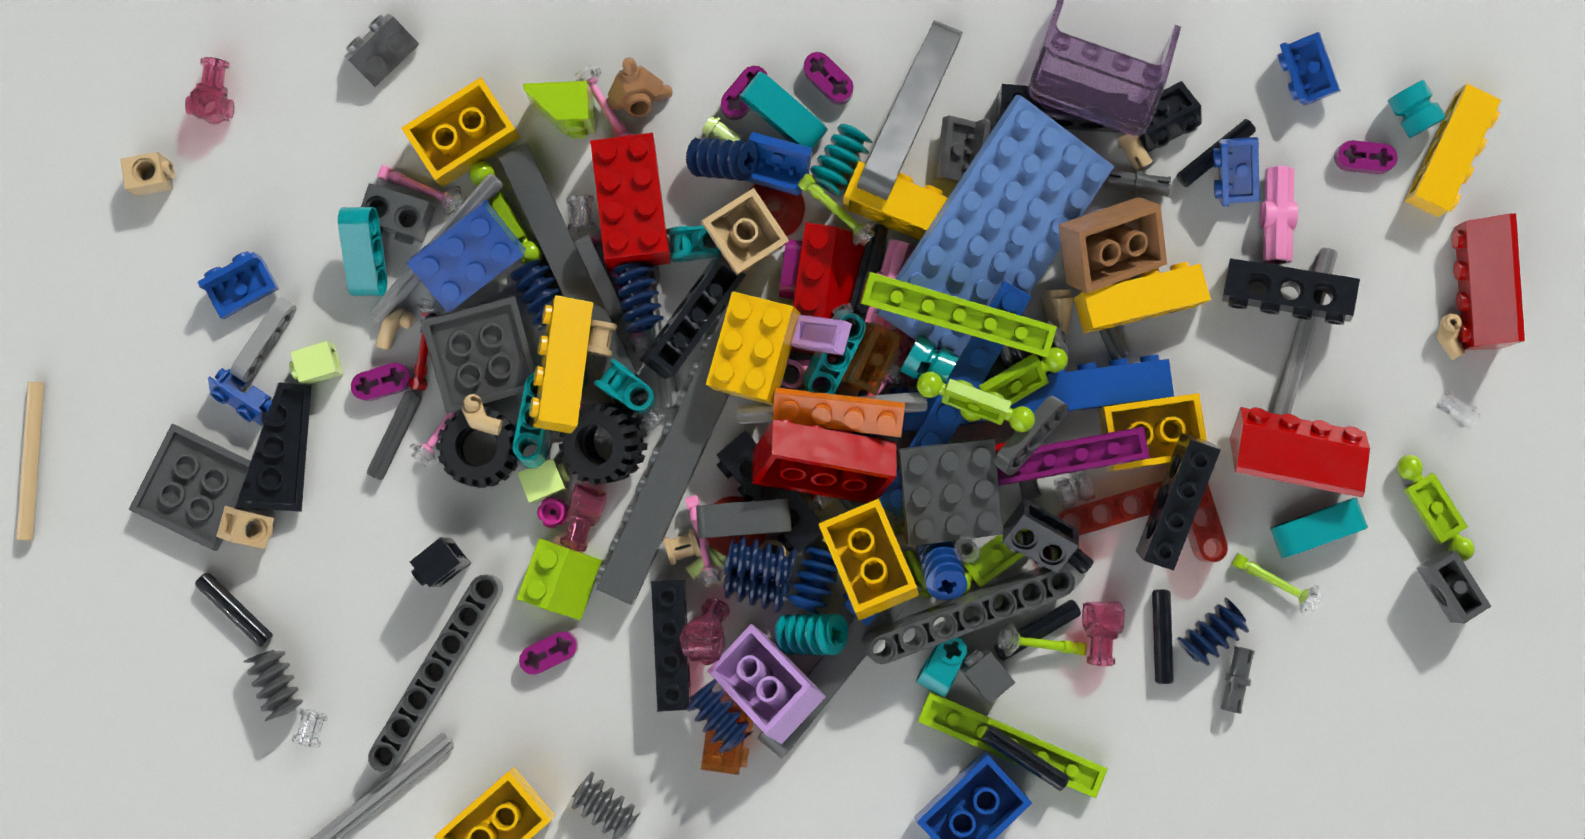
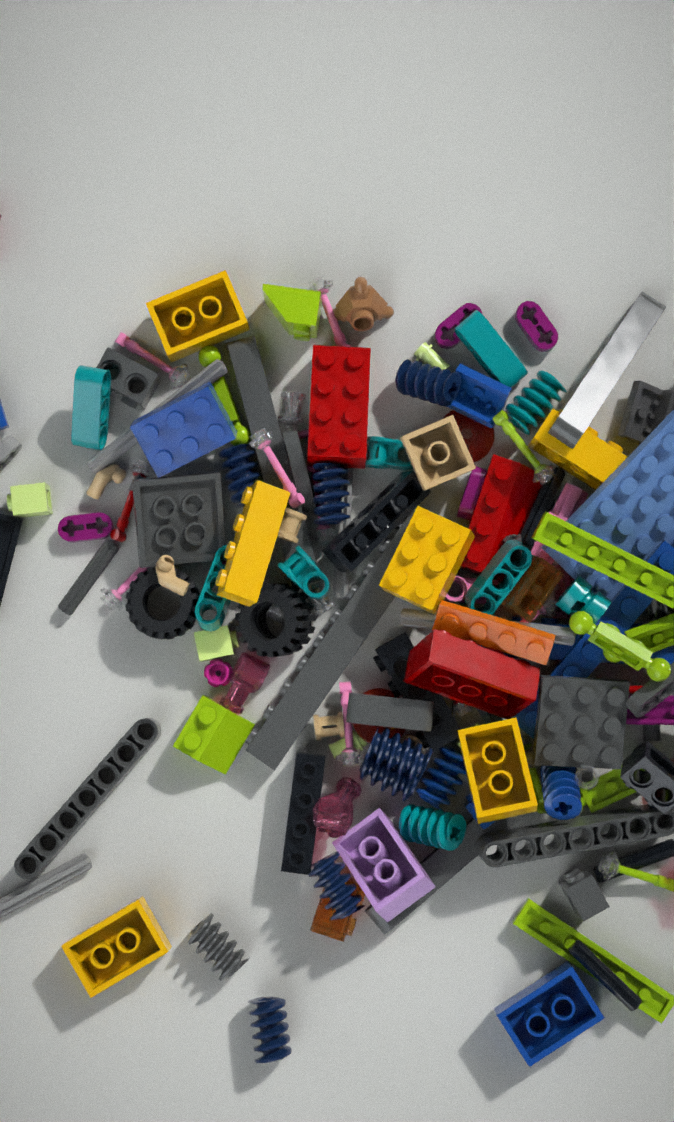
camera: 15 degrees right, 0 degrees up
(380, 48) = (139, 227): flat silver bracket -> none
(439, 563) = (109, 700): black brick -> none
(545, 646) = (192, 806): magenta beam -> none
(553, 252) = (262, 440): none -> bright pink piece
(821, 334) = (490, 559): lavender tile -> none
(941, 670) = (542, 881): teal piece -> none

